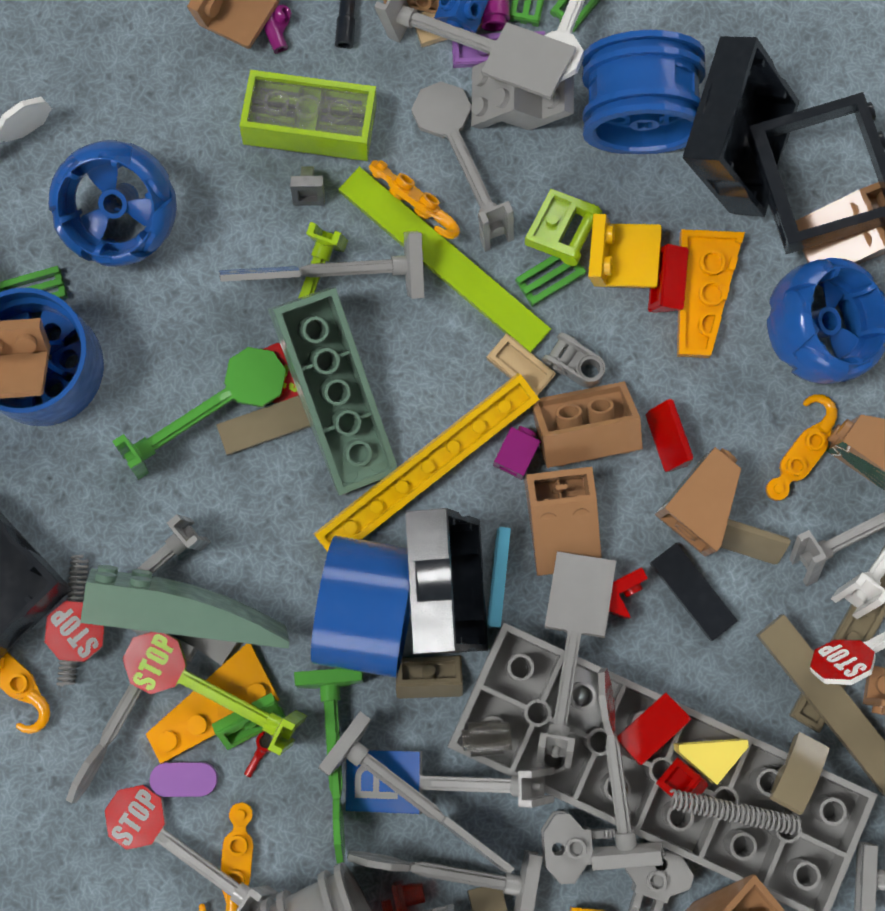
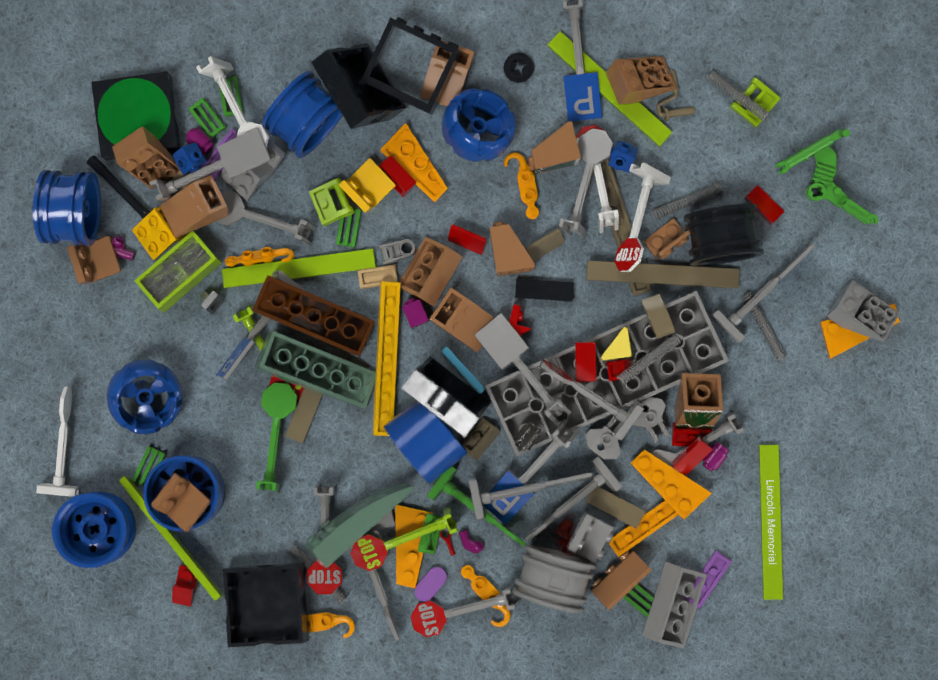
camera: 45 degrees left, 5 degrees up
(279, 786) = (470, 545): none -> magenta arm
(341, 50) = (155, 233): none -> yellow bracket
(400, 323) = (313, 315): none -> reddish brown slope
(407, 65) = (194, 207): none -> medium nougat slope

